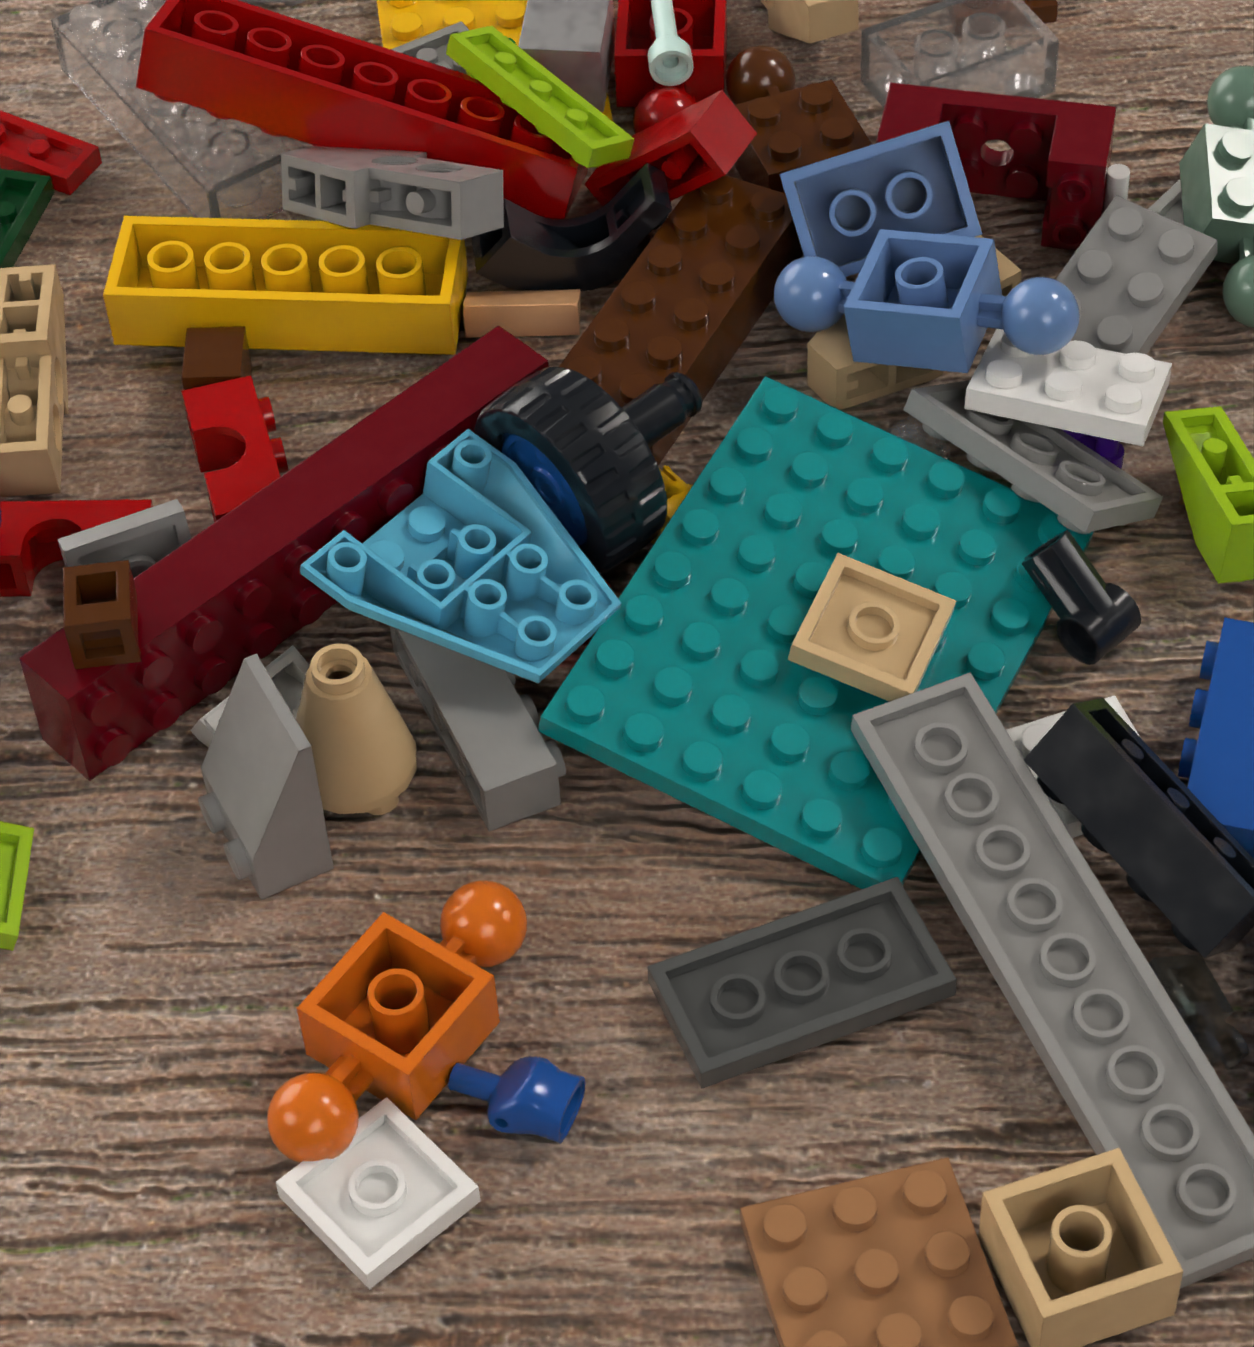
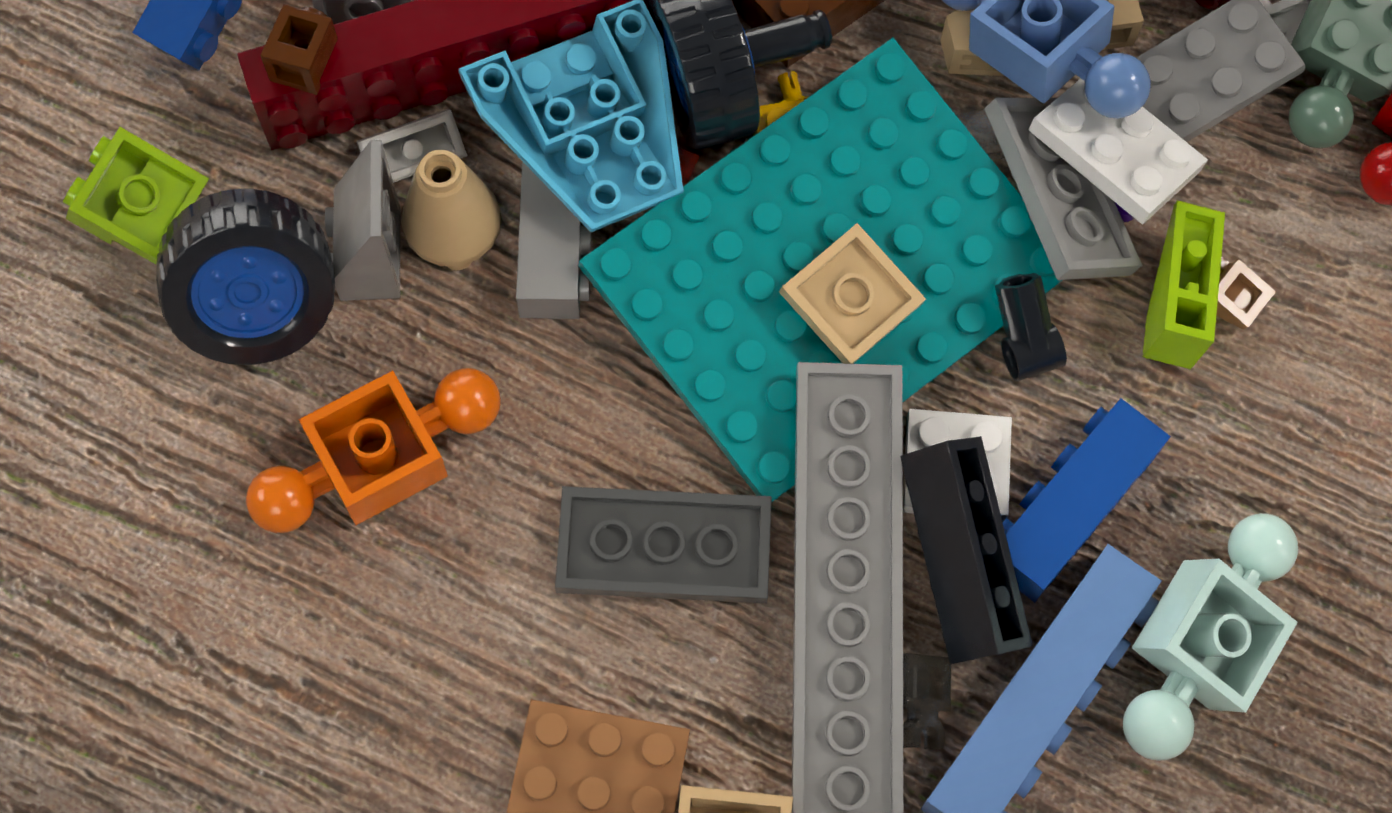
camera: 20 degrees right, 20 degrees up
(151, 883) = (245, 277): none -> black wheel
(380, 1195) = (301, 573): white plate -> none
(526, 1098) = (433, 544): blue piece -> none

